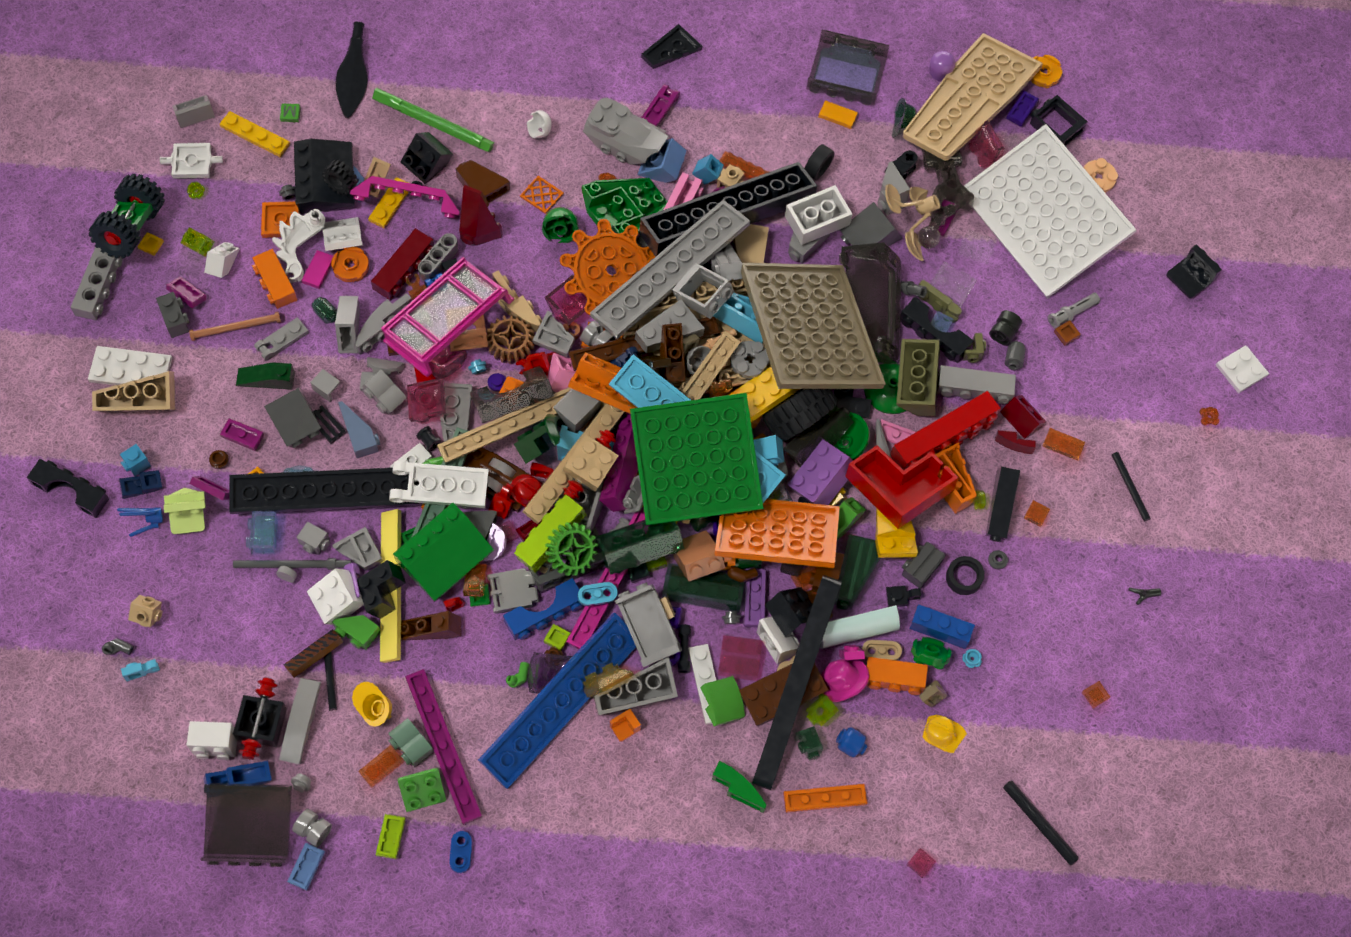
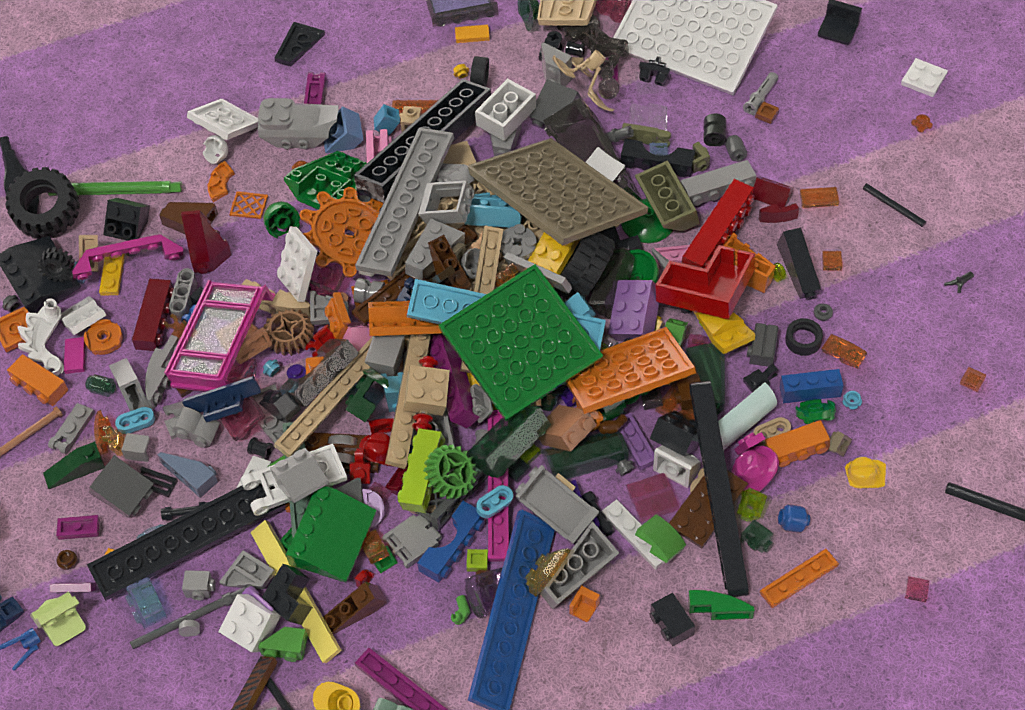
camera: 20 degrees left, 10 degrees down
(303, 354) = (99, 423): none -> clear orange slope
(310, 369) = (115, 440): none -> clear yellow plate
(322, 460) = (168, 513): none -> black bar
(338, 358) = (135, 420): none -> medium azure plate
(350, 88) = (33, 184): none -> black tyre
(416, 381) = (223, 400): none -> dark blue bracket
(440, 487) = (299, 475): none -> light grey slope
(464, 408) = (280, 404): none -> black slope
(527, 156) = (218, 181): none -> orange tile
(547, 279) = (297, 263): none -> white plate
(555, 350) = (337, 315): none -> orange plate
(561, 97) = (223, 119): none -> white plate
(691, 778) = (672, 619): none -> black brick
(752, 405) = (554, 279): none -> light grey tile
(805, 150) = (461, 71): none -> yellow plate
(865, 531) = (696, 340): none -> clear pink plate
(876, 317) = (605, 164): none -> white sticker
(924, 178) = (575, 49): none -> black bush
(989, 244) = (654, 68): none -> black hips
(993, 608) = (844, 350): none -> clear orange slope

